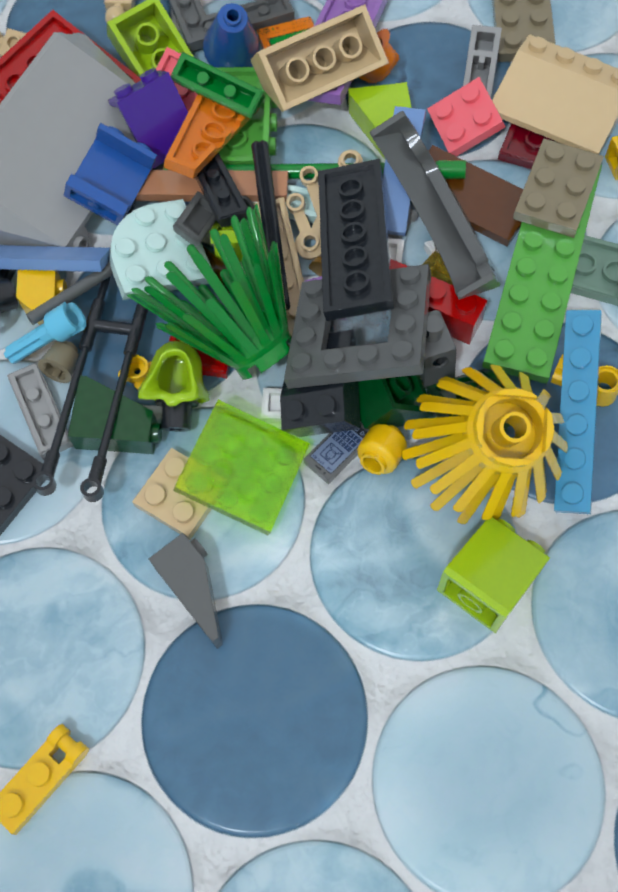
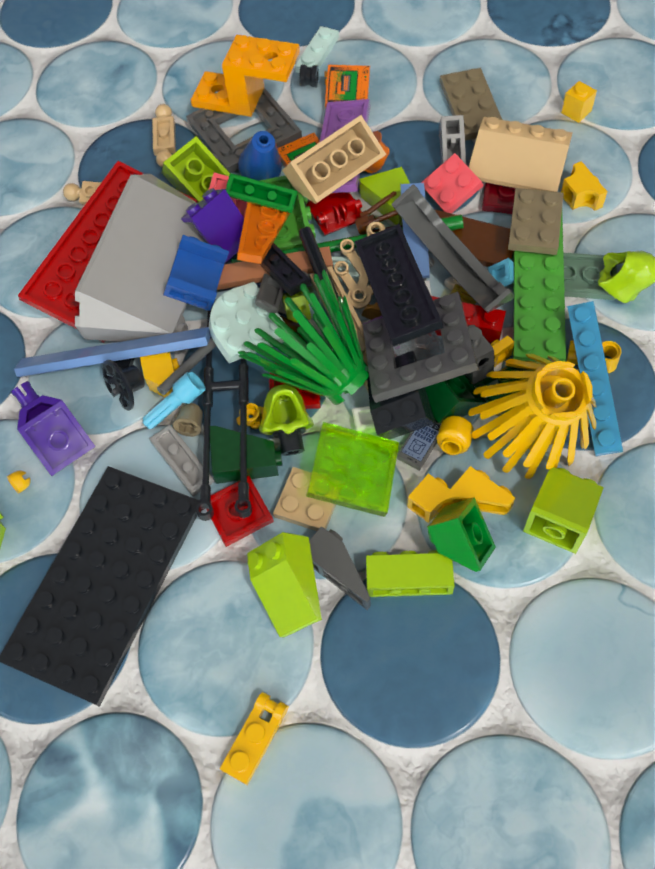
camera: 10 degrees left, 5 degrees down
(74, 508) = (228, 523): none -> red tile
(120, 593) = (286, 582): none -> lime slope
(277, 615) = (409, 574): none -> lime brick
(311, 126) = (335, 211): none -> red hinge
(344, 143) = (365, 219): none -> reddish brown plant
(354, 581) = (462, 534): none -> green slope
(382, 526) = (433, 494): none -> yellow arch
(470, 349) = (502, 349): none -> yellow plate
(500, 247) = (503, 271): none -> medium azure plate

